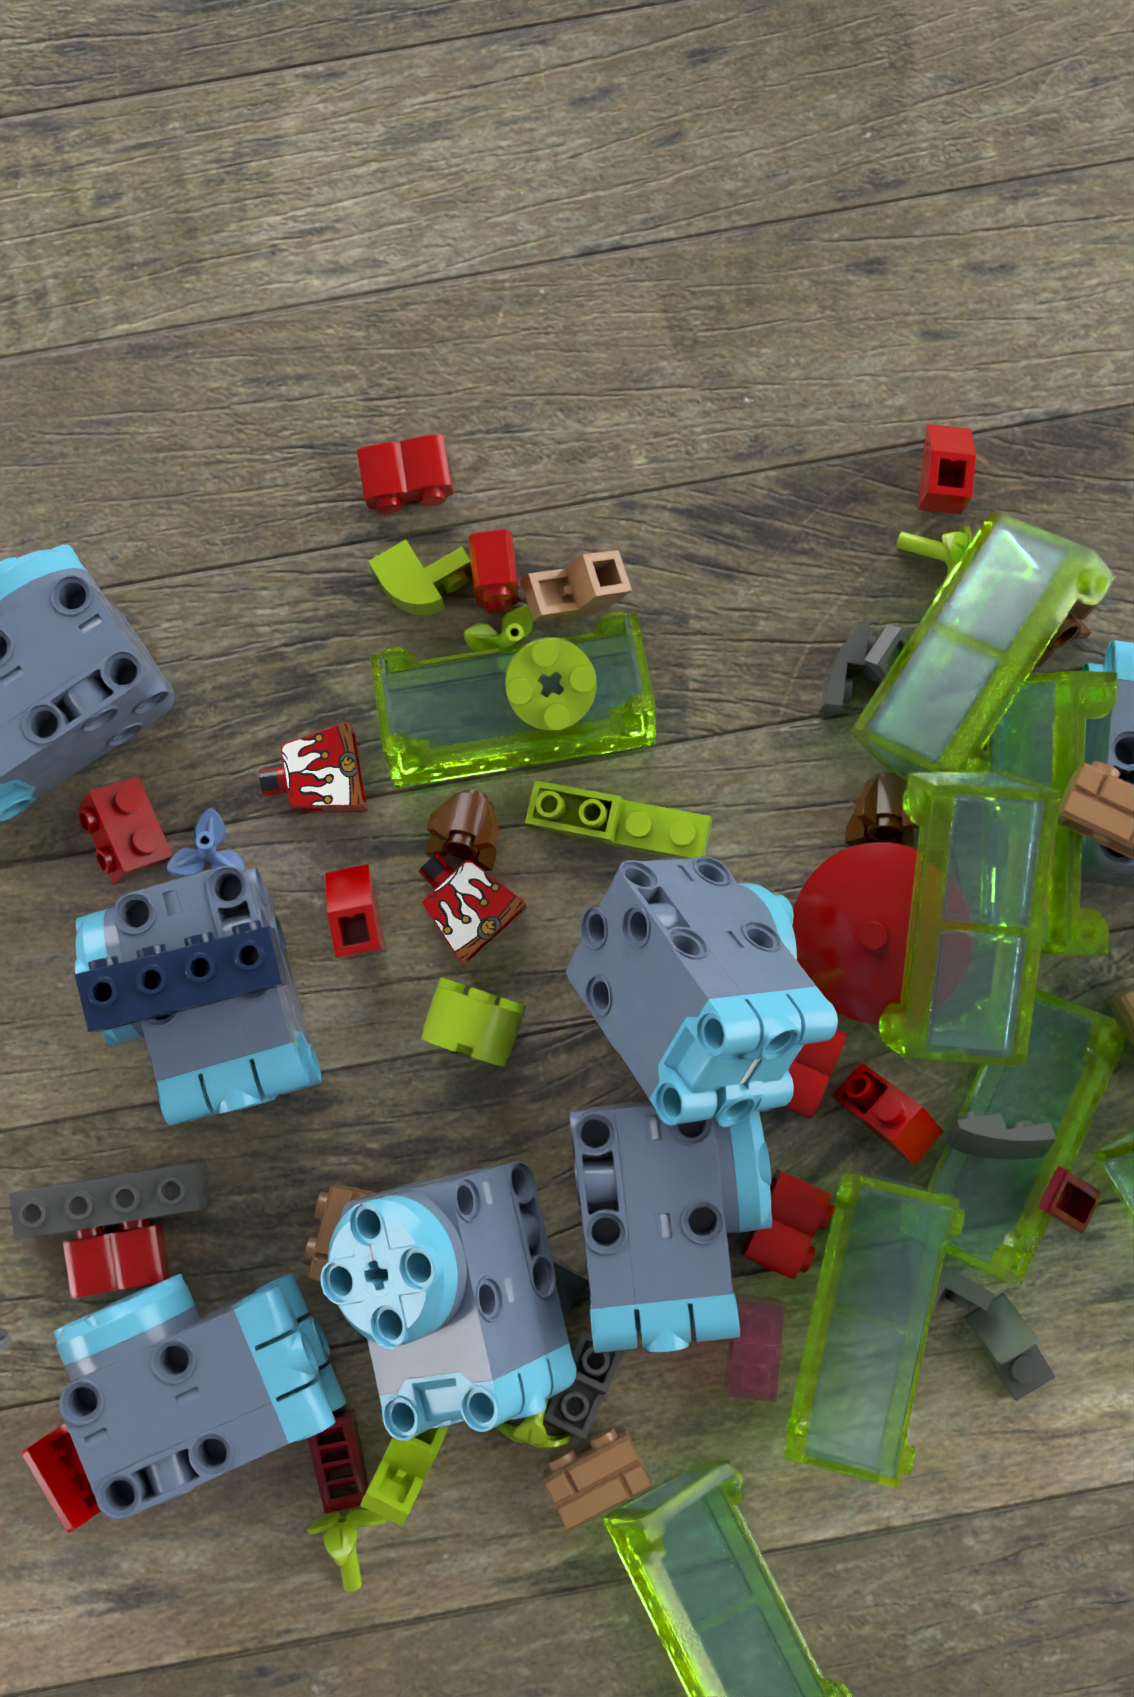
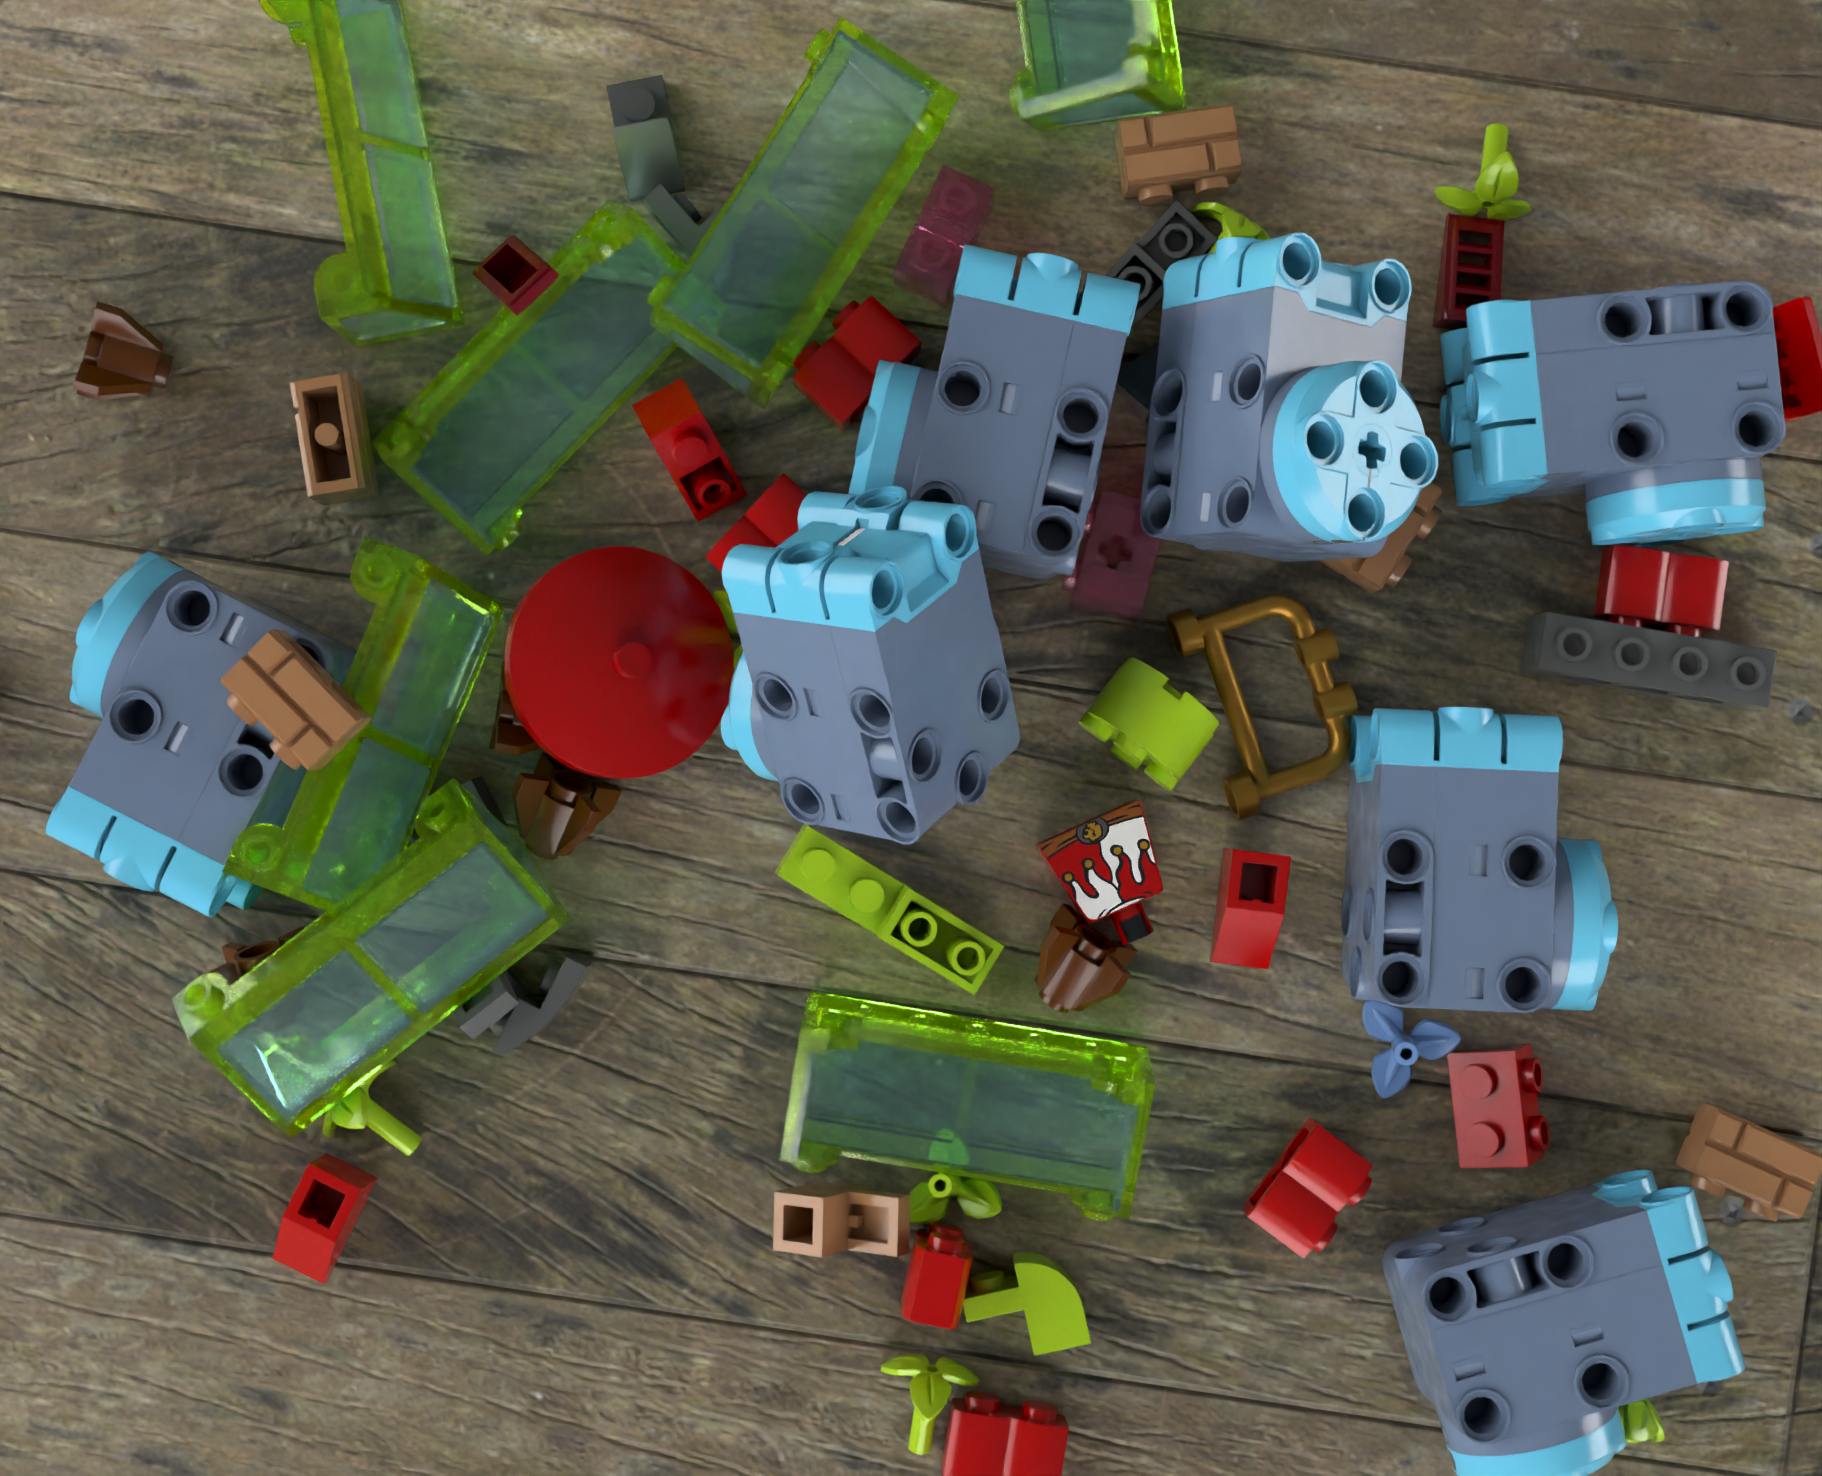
camera: 165 degrees left, 5 degrees up
(180, 978) = (1493, 882): dark blue brick -> none
(245, 723) = (1309, 1189): none -> red brick
(319, 773) = (1235, 1095): torso -> none
(340, 1089) = (1314, 652): none -> pearl gold bar
(402, 1475) = (1406, 226): lime brick -> none
(472, 492) = (928, 1392): none -> lime plant
(540, 1113) = (1118, 591): none -> clear pink brick
(555, 708) = (919, 1073): lime brick -> none
(974, 916) = (506, 641): windscreen -> none
(990, 1138) = (580, 378): dark grey slope -> none

